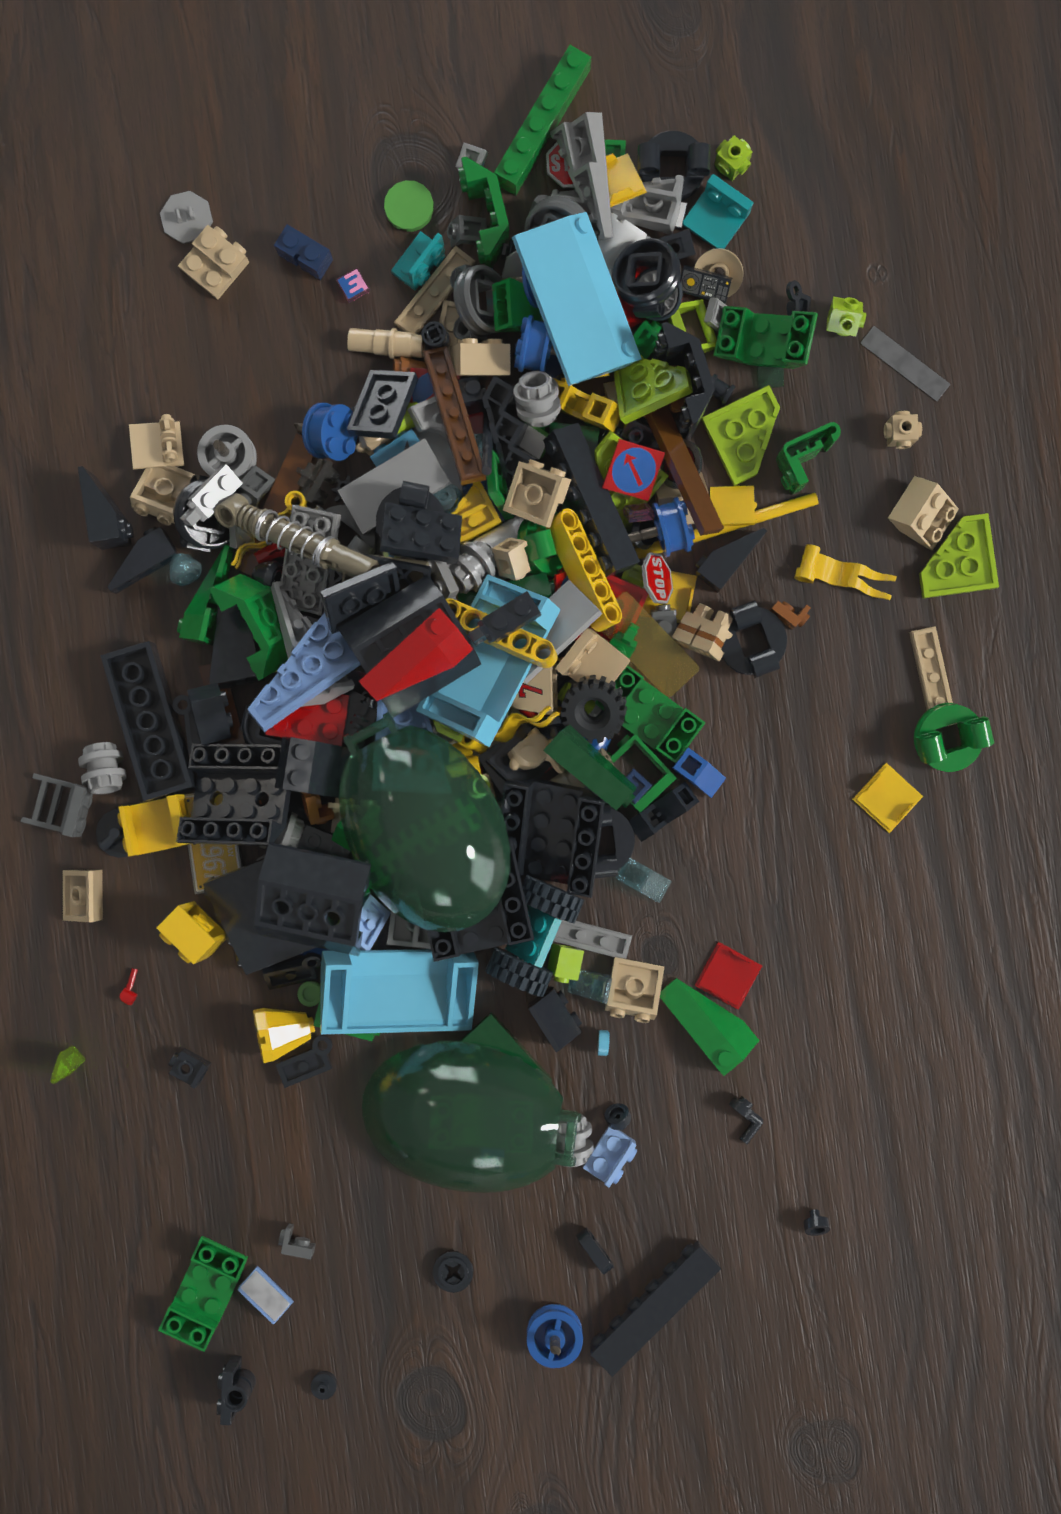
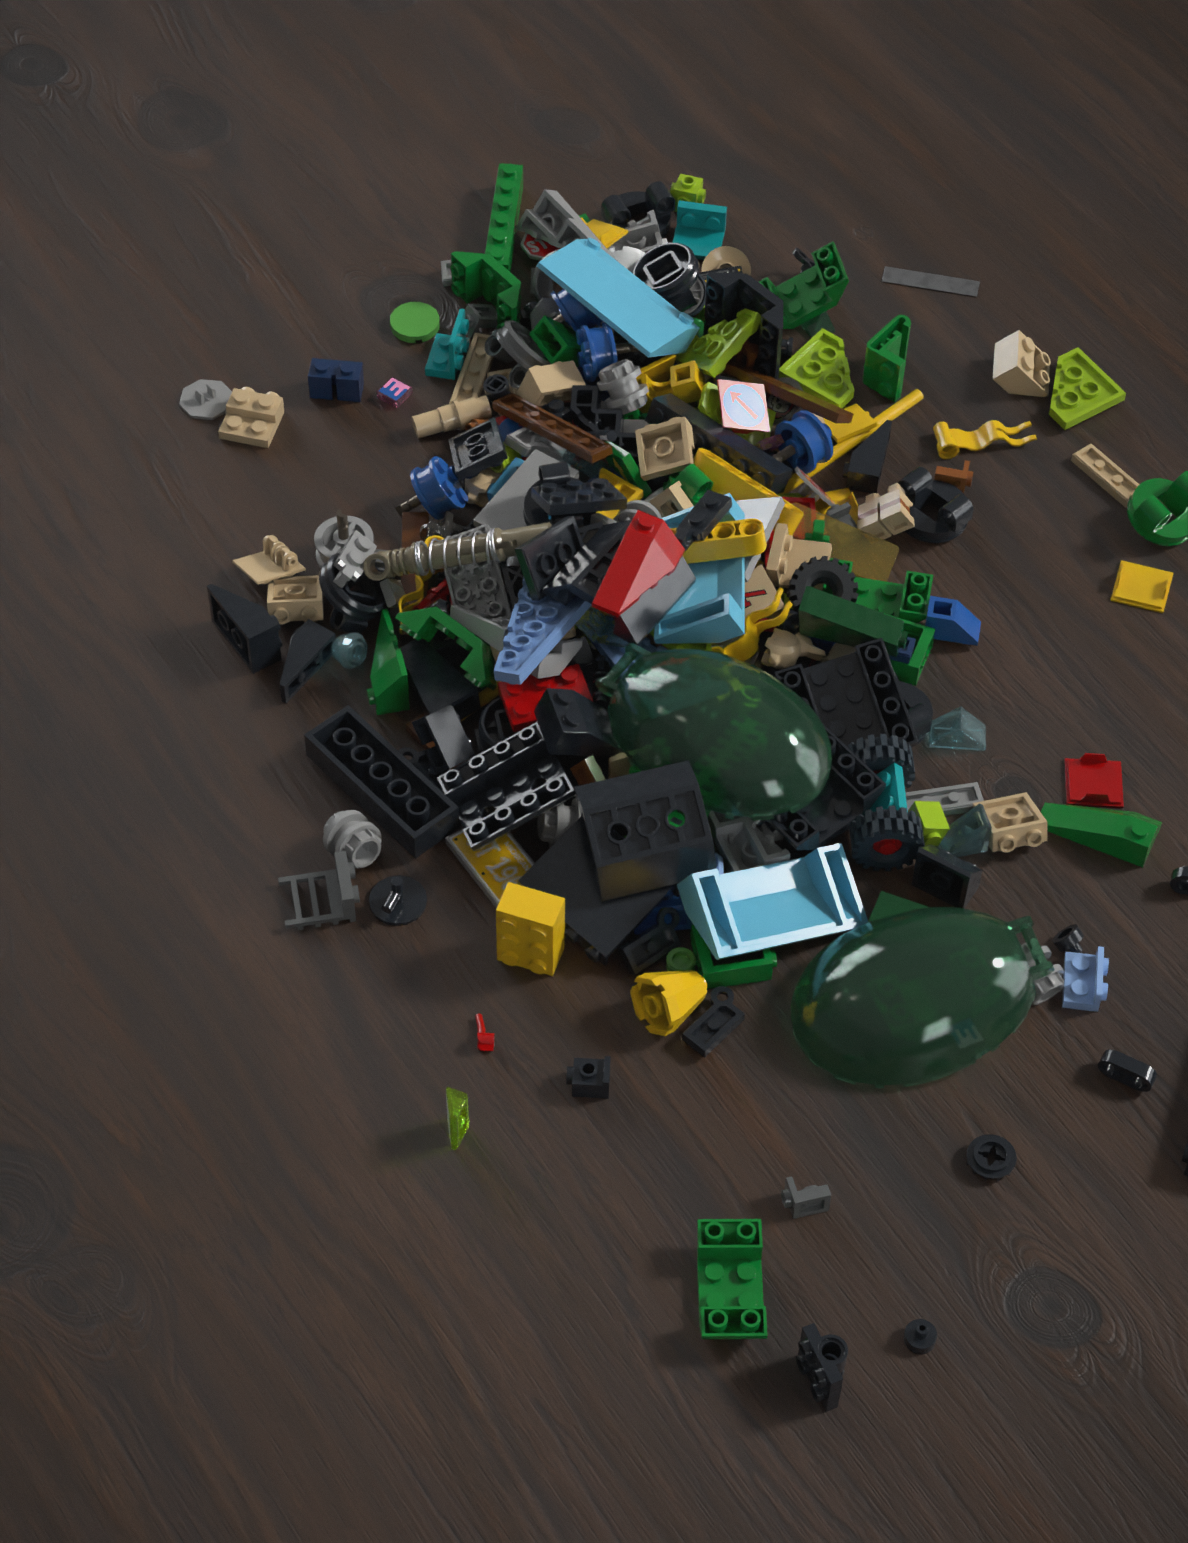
camera: 30 degrees left, 35 degrees down
(82, 895) = (387, 963): tan slope -> none
(152, 824) = (438, 868): yellow panel -> none
(265, 1295) = (799, 1270): flat silver slope -> none
(554, 1336) = (1139, 1164): blue wheel -> none
(603, 1043) = (1010, 880): medium azure tile -> none
(663, 811) = (940, 667): black brick -> none
(845, 316) = (859, 259): lime brick -> none
(896, 435) = (961, 318): tan brick -> none

